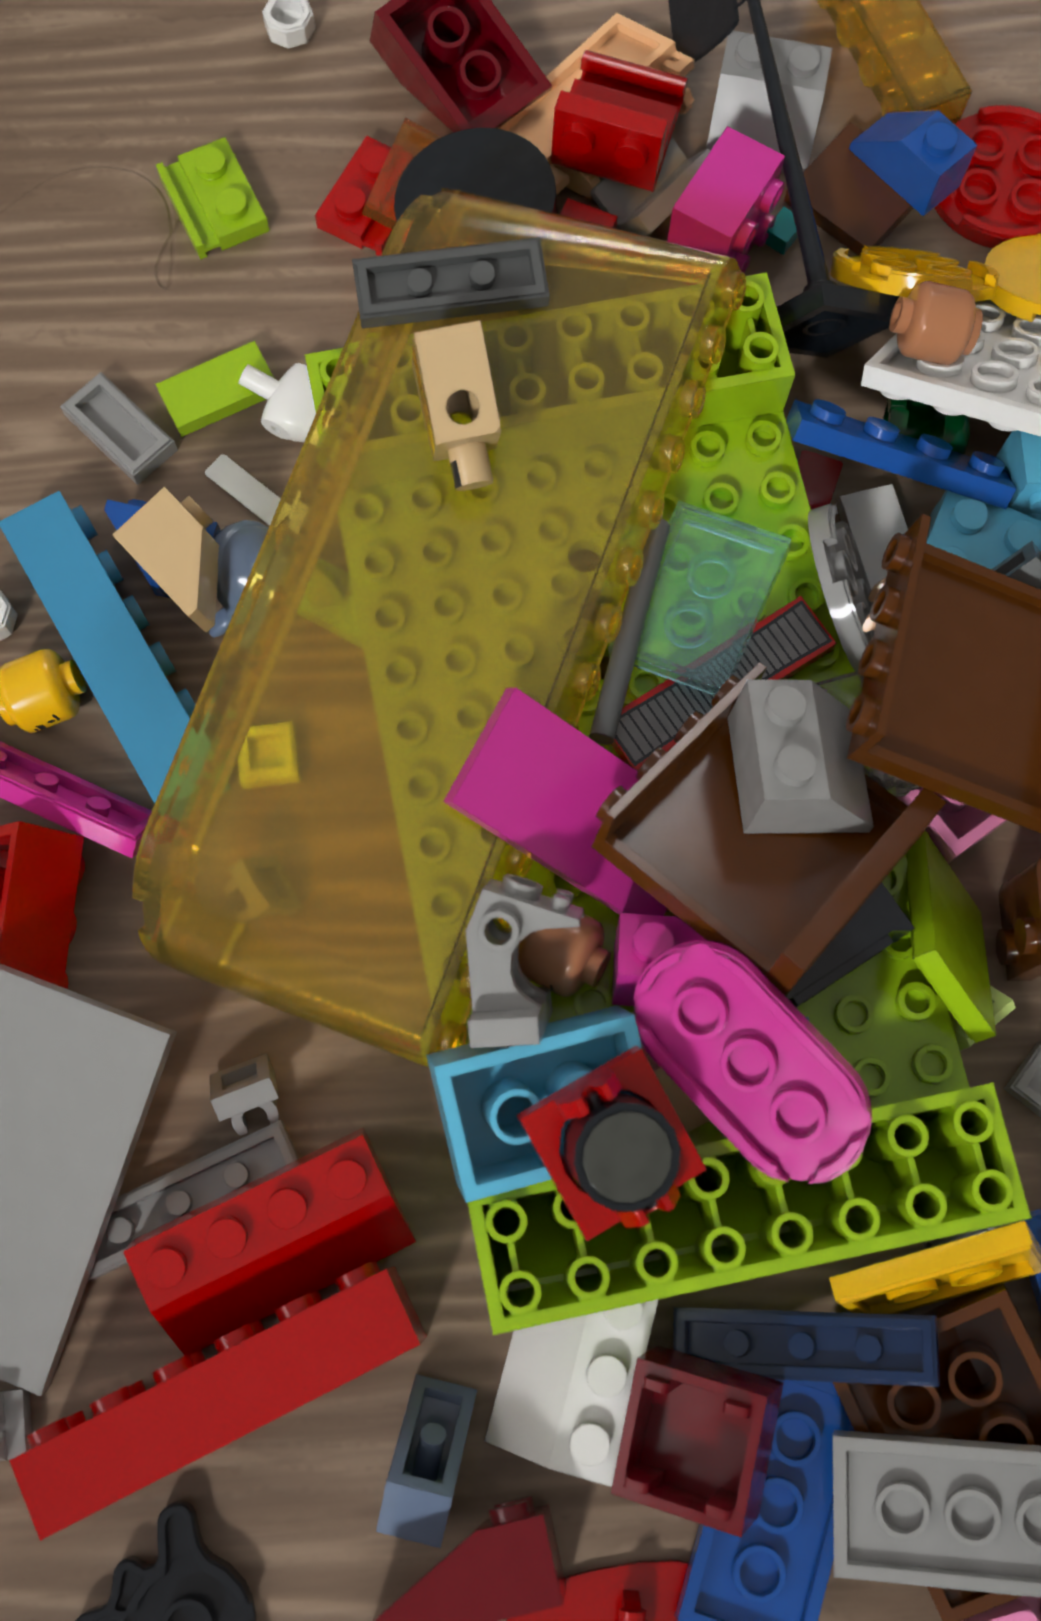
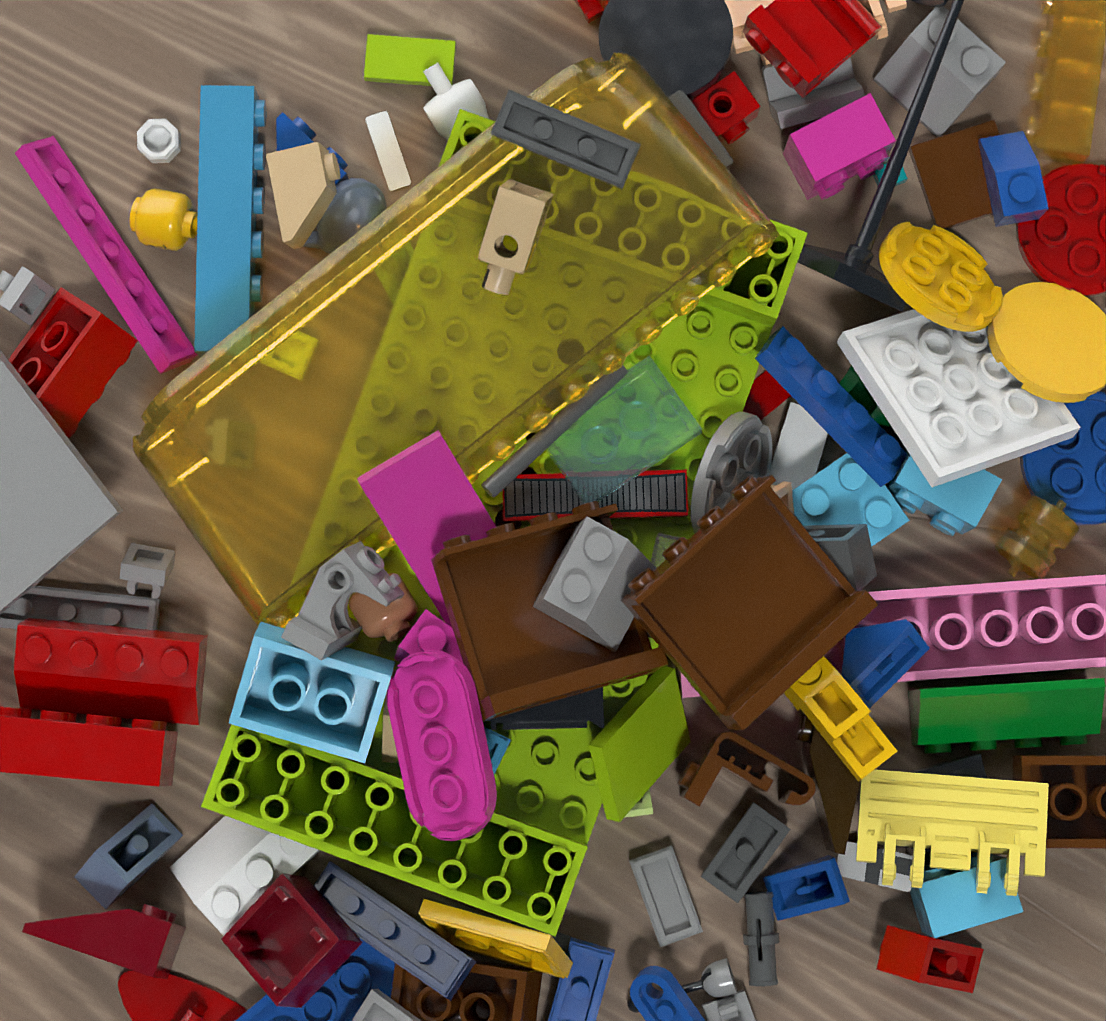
camera: 35 degrees right, 10 degrees up
(119, 428) = (325, 50): light grey tile -> none
(615, 1146) = (331, 744): piece -> none
(936, 323) = (908, 333): nougat head -> none

